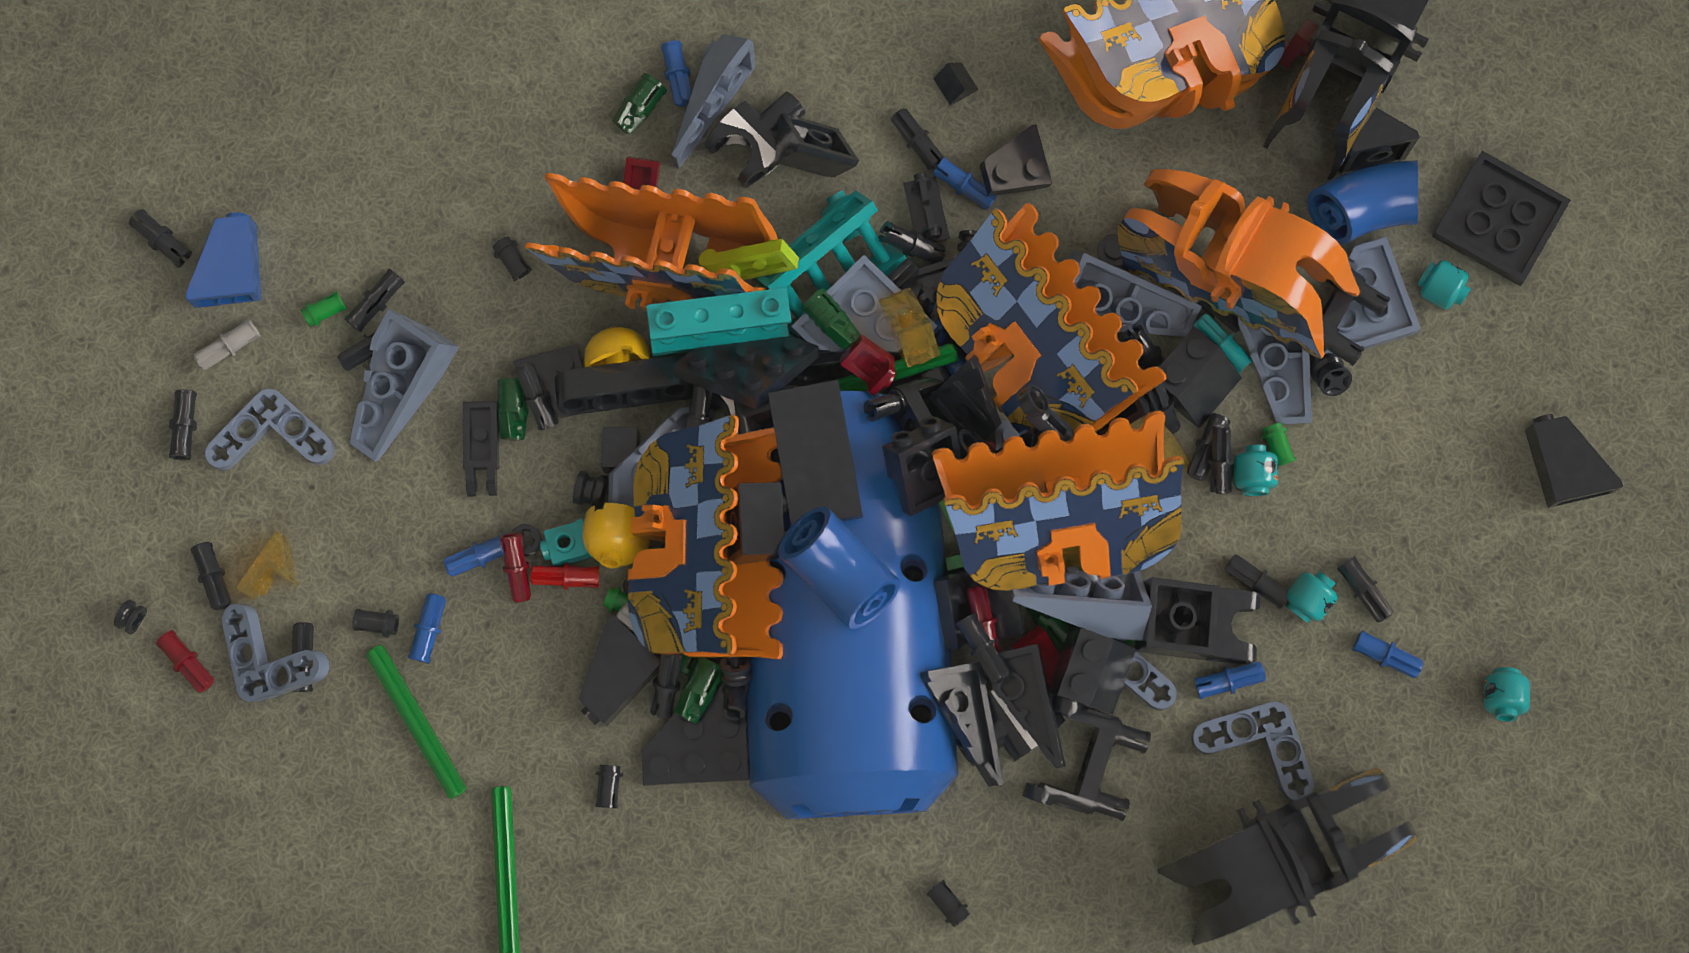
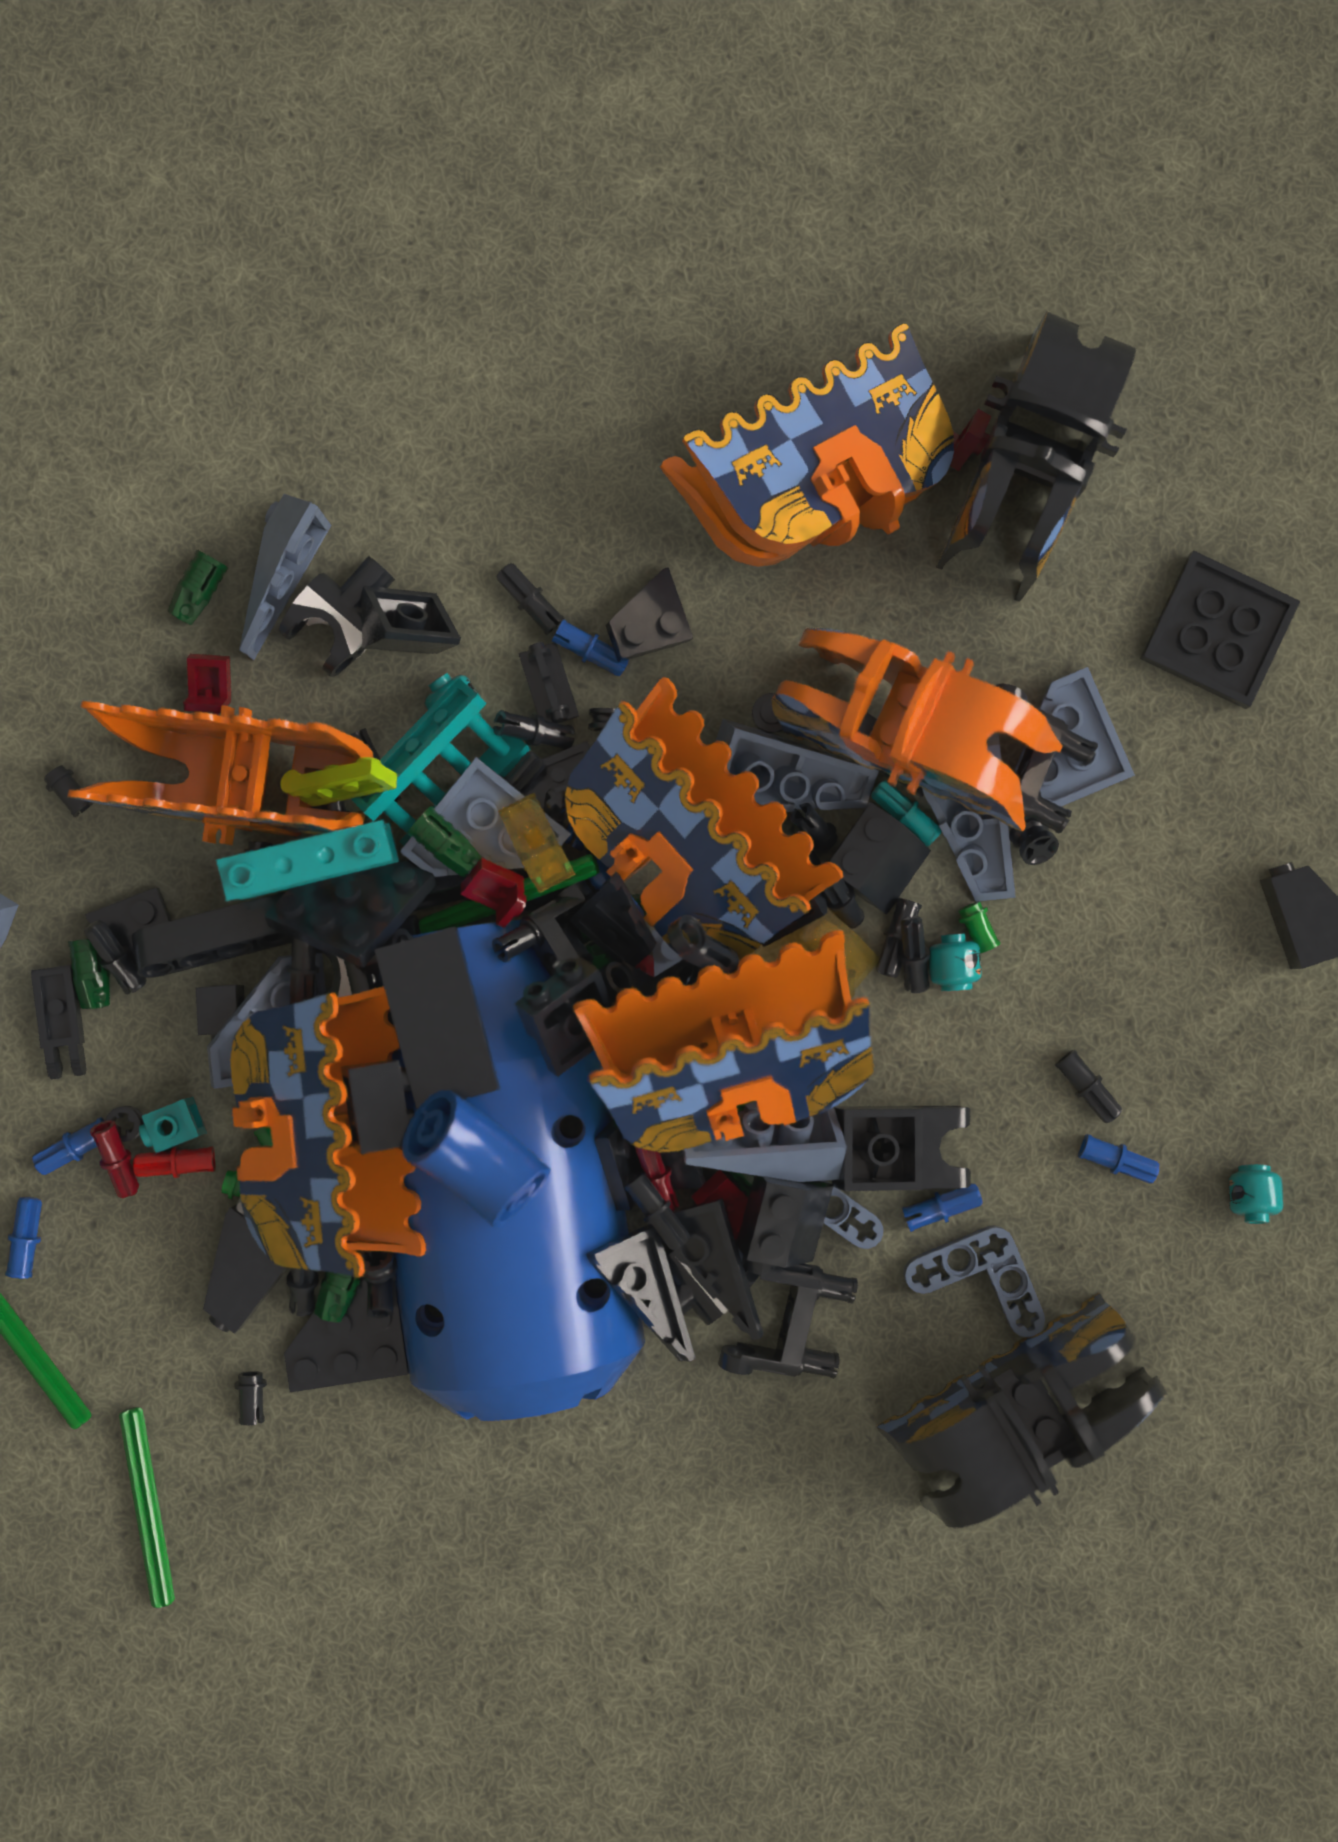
camera: 10 degrees left, 10 degrees up
(590, 489) = (189, 1059): black wheel -> none
(609, 535) = (211, 1120): yellow cylinder -> none
(615, 346) = (195, 892): yellow cylinder -> none
(677, 72) = (237, 543): blue axle -> none
(948, 904) = (646, 1491): black pin -> none
(955, 82) = (568, 523): black slope -> none
(1257, 580) = (966, 1089): black axle -> none
(1311, 596) = (1028, 1102): teal head -> none
(1366, 200) = (1063, 627): blue brick -> none
(1380, 142) = (1076, 553): black slope -> none
(1444, 284) = (1158, 718): teal head -> none

